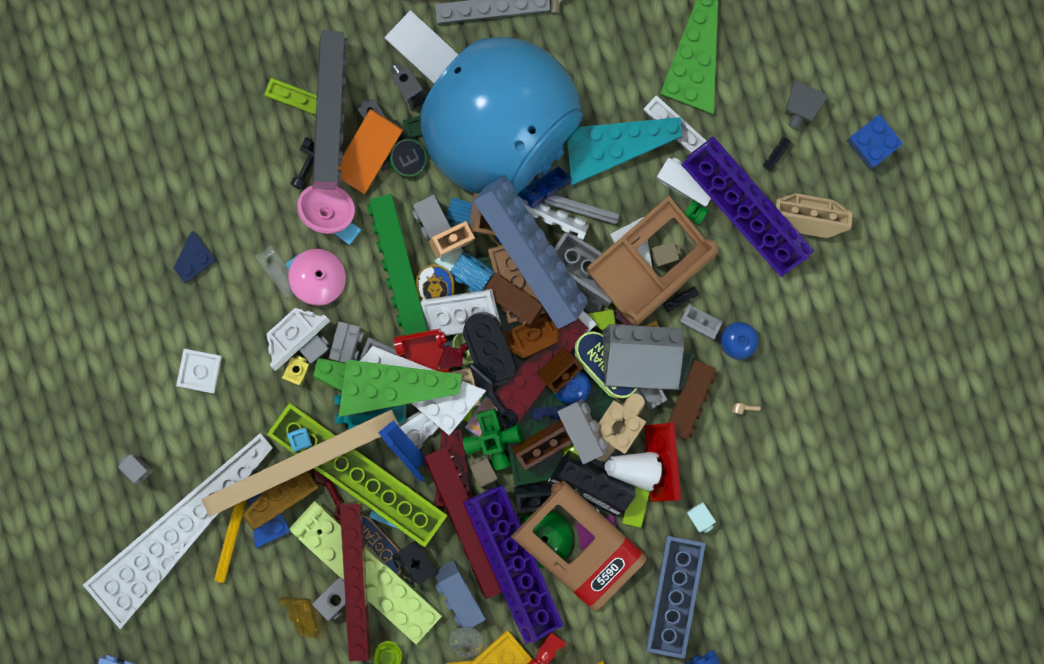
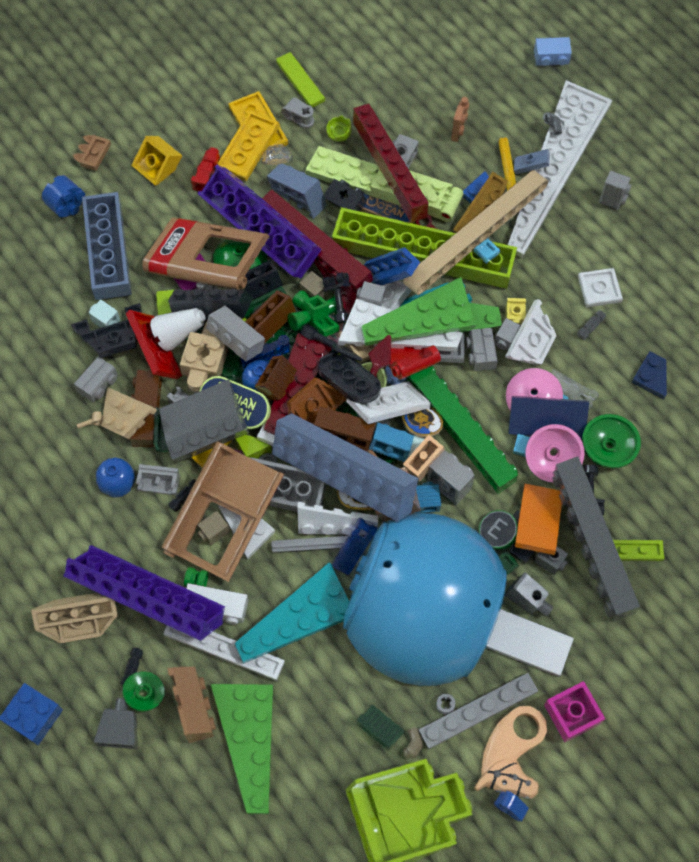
camera: 165 degrees right, 20 degrees down
(158, 576) = (553, 121): none -> dark grey arm
(203, 538) = (532, 161): none -> sand blue plate
(227, 332) = (591, 324): none -> dark grey axle
(259, 190) = (613, 431): none -> green dish
(259, 612) = (459, 119): none -> nougat plate
(301, 615) = (423, 135): clear yellow wing -> none
(315, 247) = (532, 413): none -> dark blue tile
(433, 435) = (372, 293): none -> light grey brick
(459, 454) = (331, 286): none -> black bar
(523, 25) = (452, 704): none -> light grey bush
(581, 24) = (380, 727): none -> clear green panel
(701, 484) = (108, 339): none -> black wing
(713, 398) = (124, 413): none -> tan wing
(728, 448) = (96, 379): none -> light grey brick
(734, 97) = (192, 705): none -> medium nougat wedge
(766, 120) = (147, 683): none -> green dish

